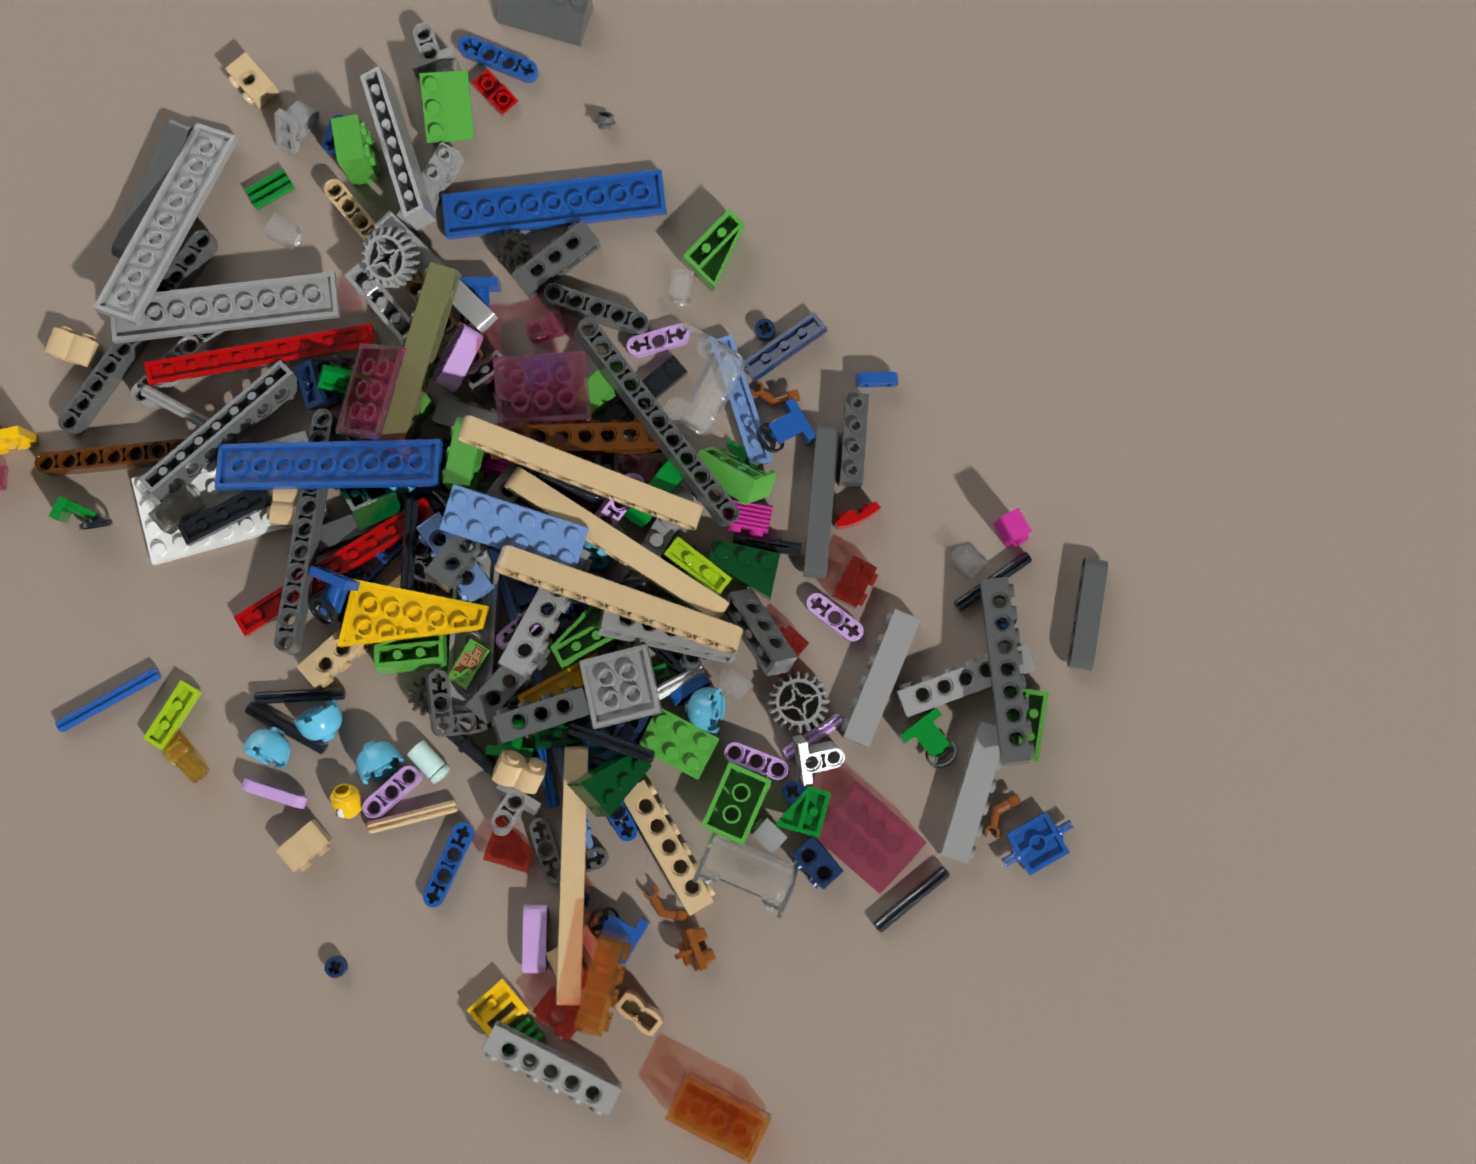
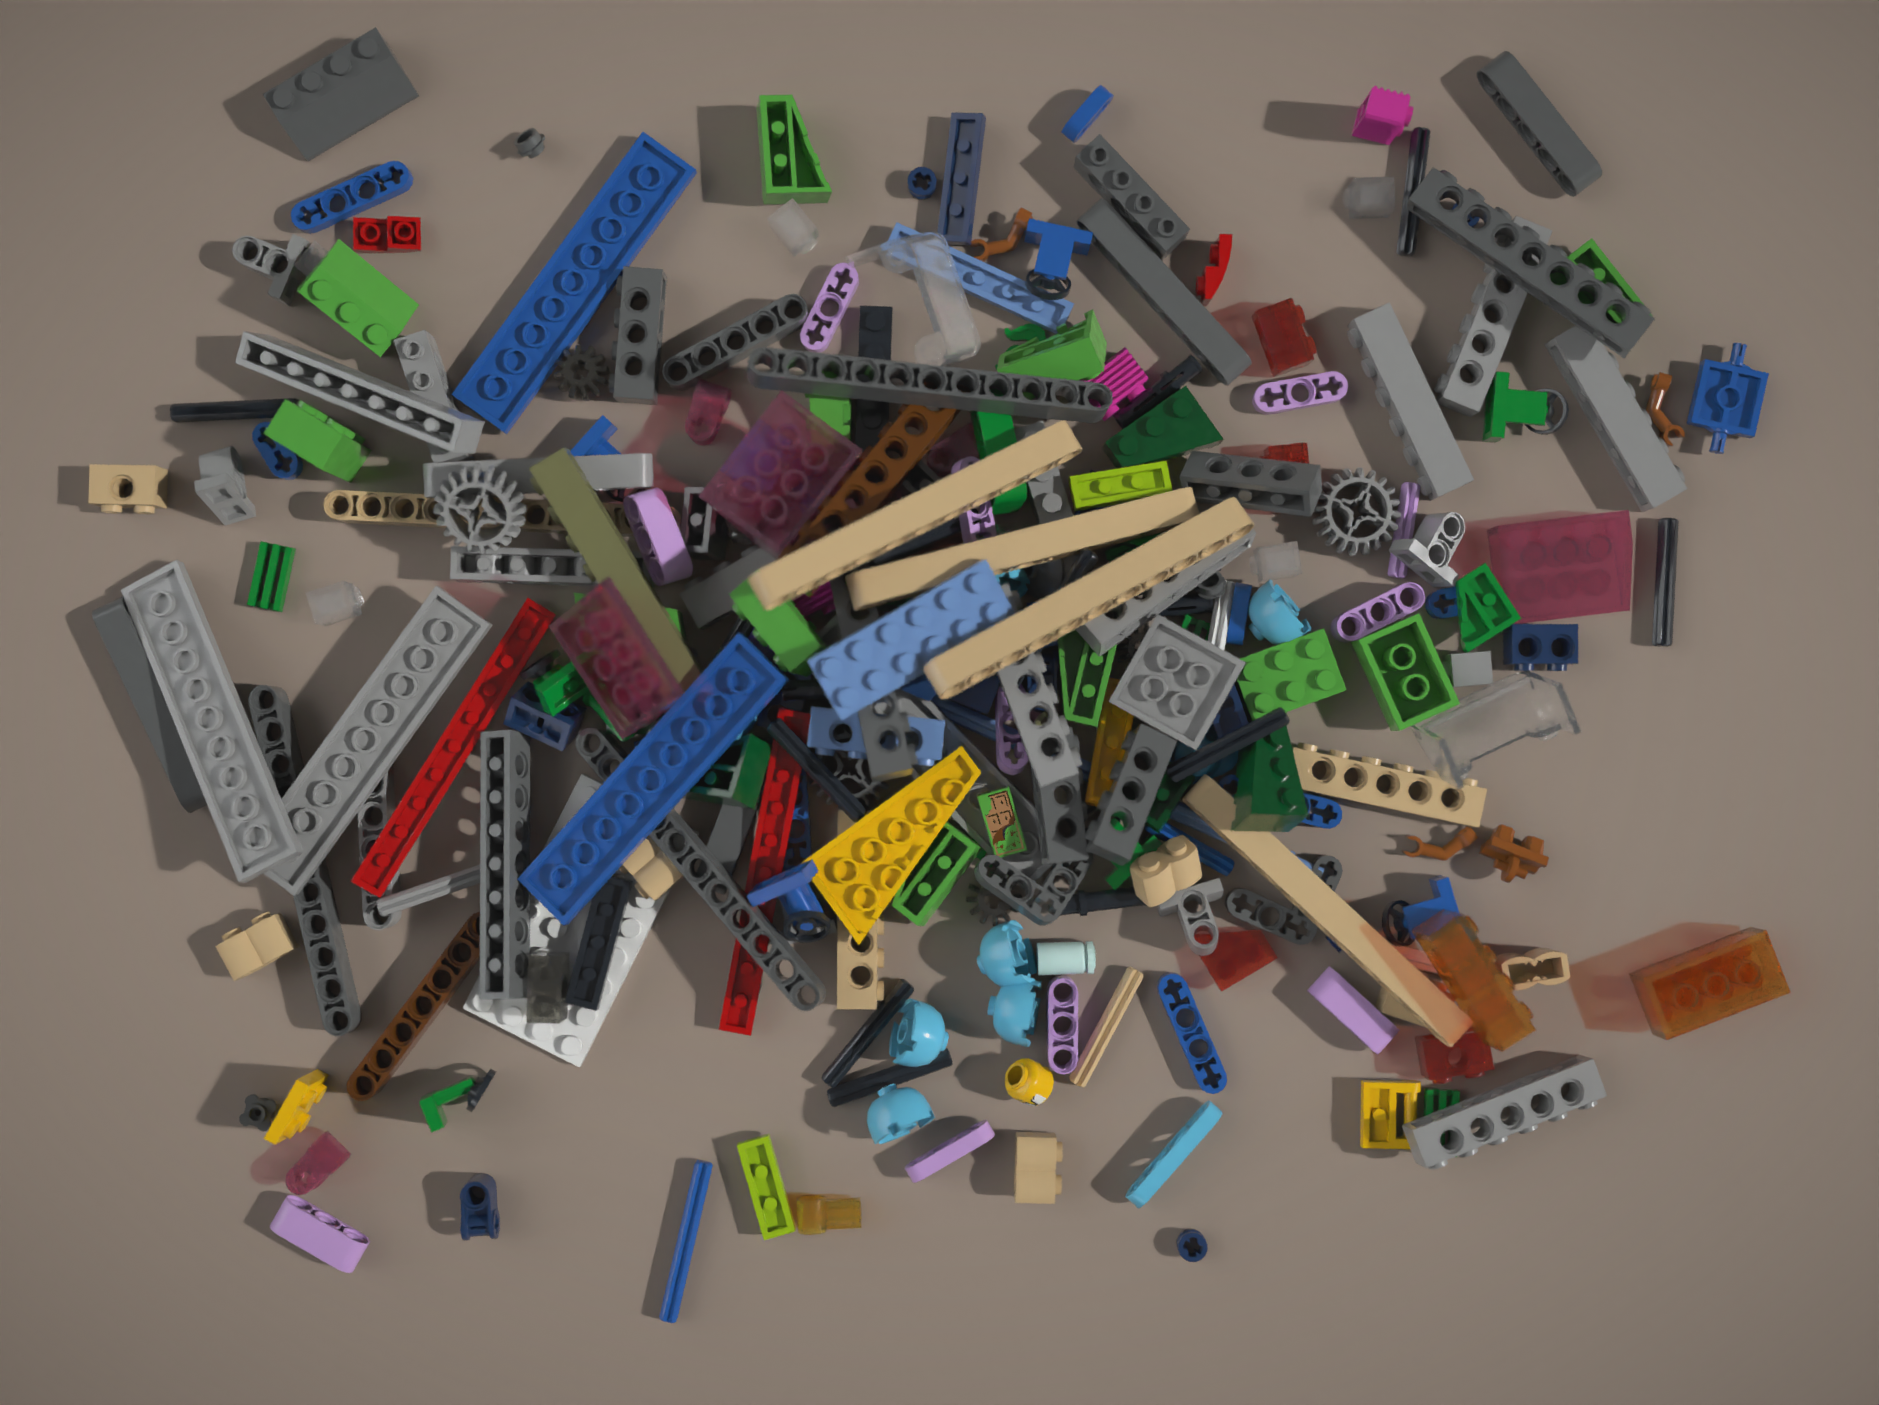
camera: 50 degrees left, 5 degrees up
(29, 580) = (479, 1215): none -> dark blue piece
(335, 94) = (227, 410): none -> black axle
(375, 912) = (1173, 1154): none -> medium azure beam
(403, 730) = (1006, 956): none -> medium azure cylinder

